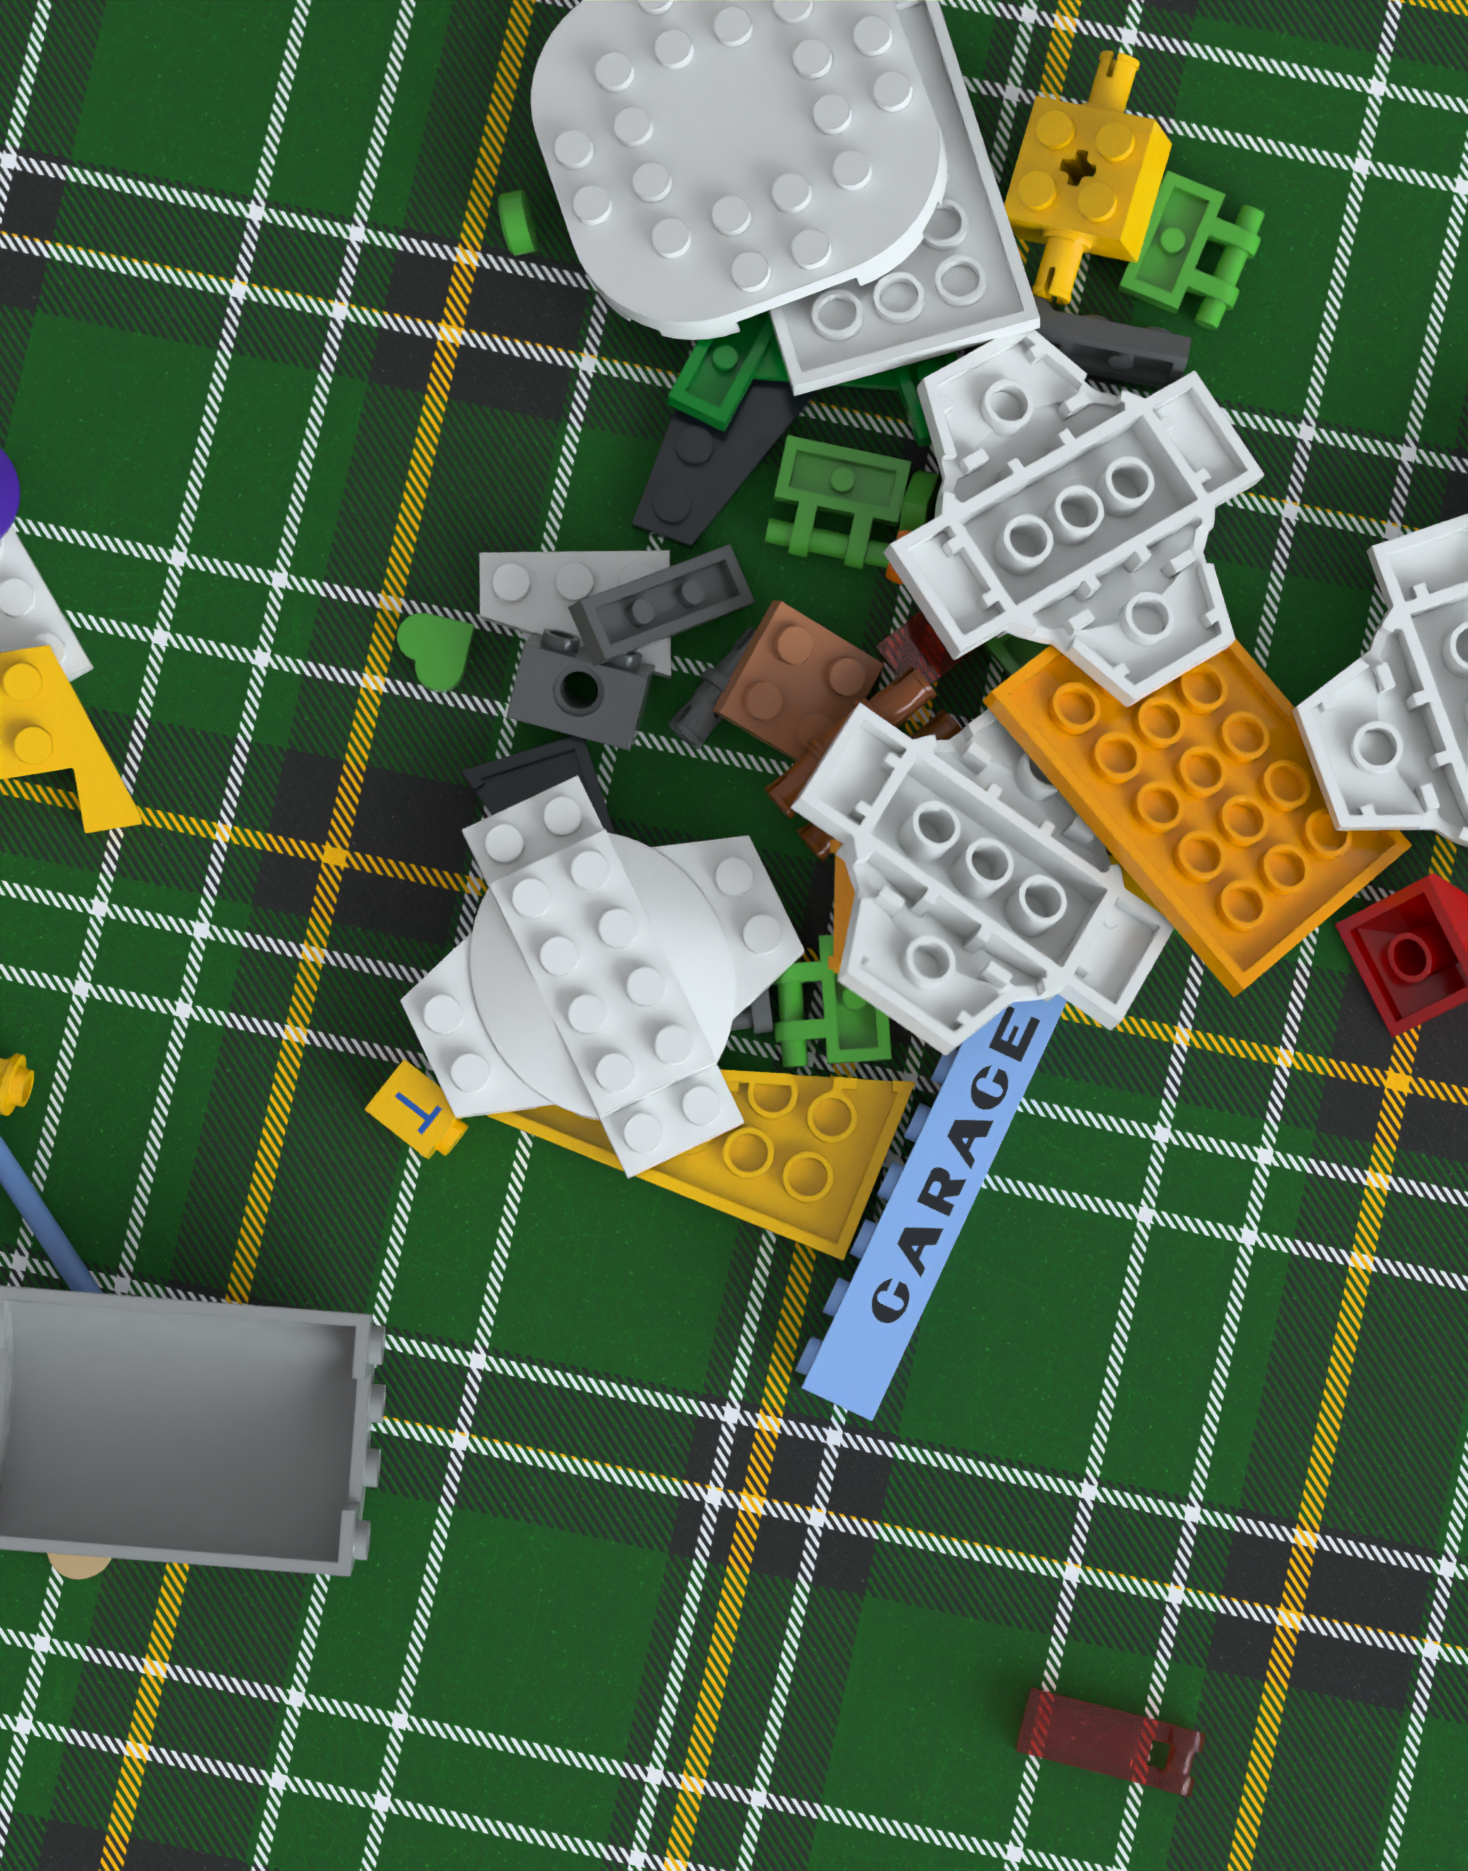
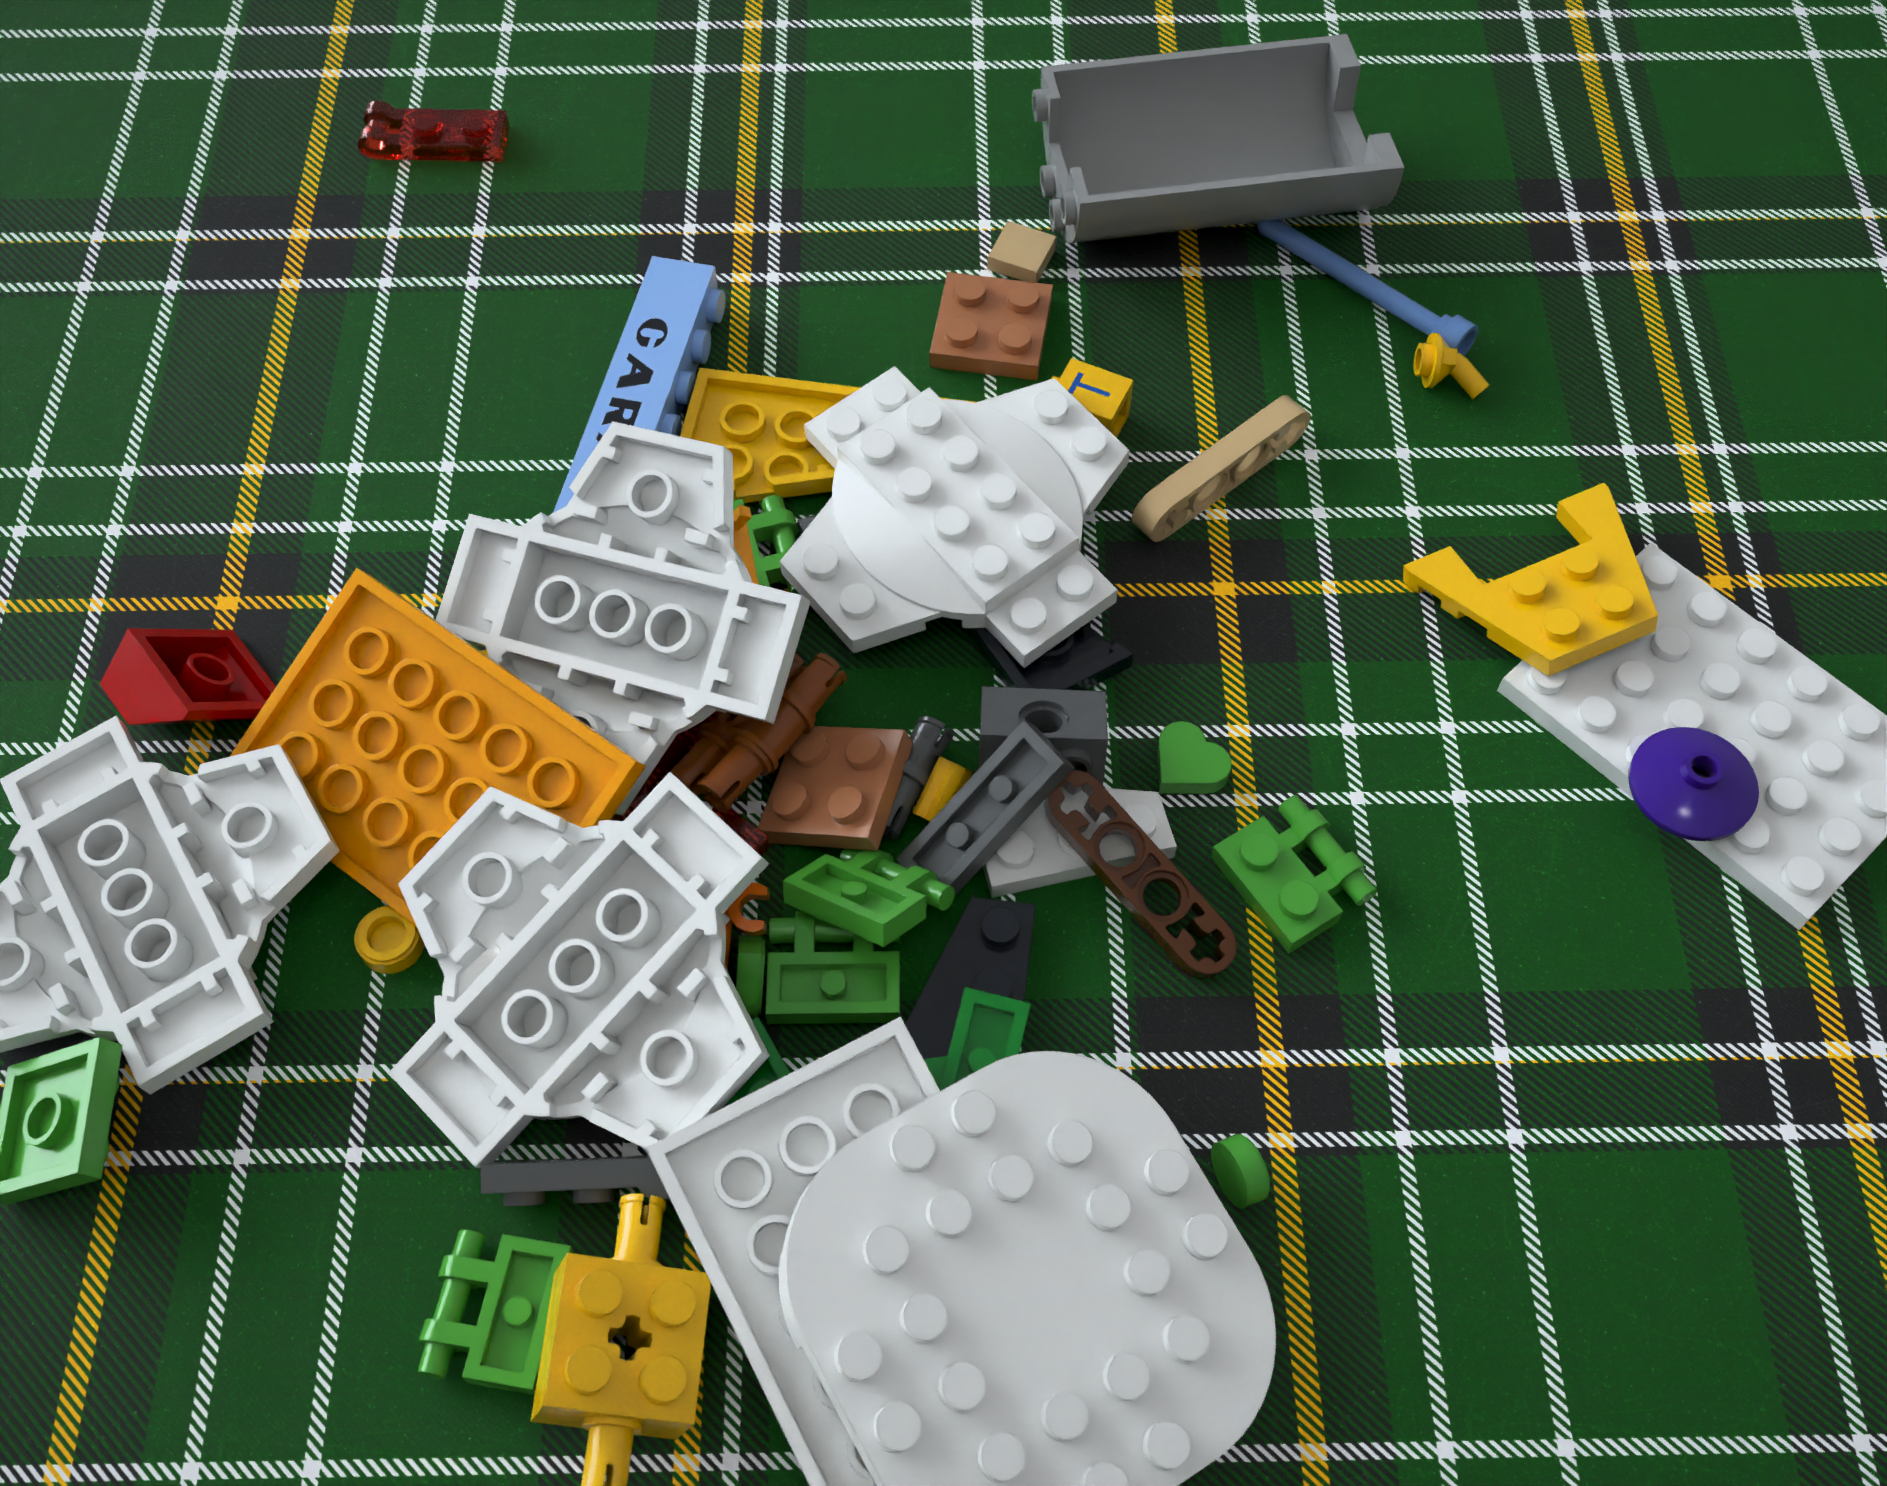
camera: 165 degrees right, 25 degrees down
(294, 991) = (1220, 468): none -> tan beam
(391, 498) = (1279, 884): none -> bright green plate
(430, 1371) = (1021, 252): none -> tan tile
(493, 1268) = (991, 326): none -> nougat plate
(521, 522) = (1147, 867): none -> reddish brown beam
(691, 662) = (941, 786): none -> yellow piece
(802, 540) = (866, 893): none -> bright green plate
(1260, 631) = (388, 941): none -> yellow tile

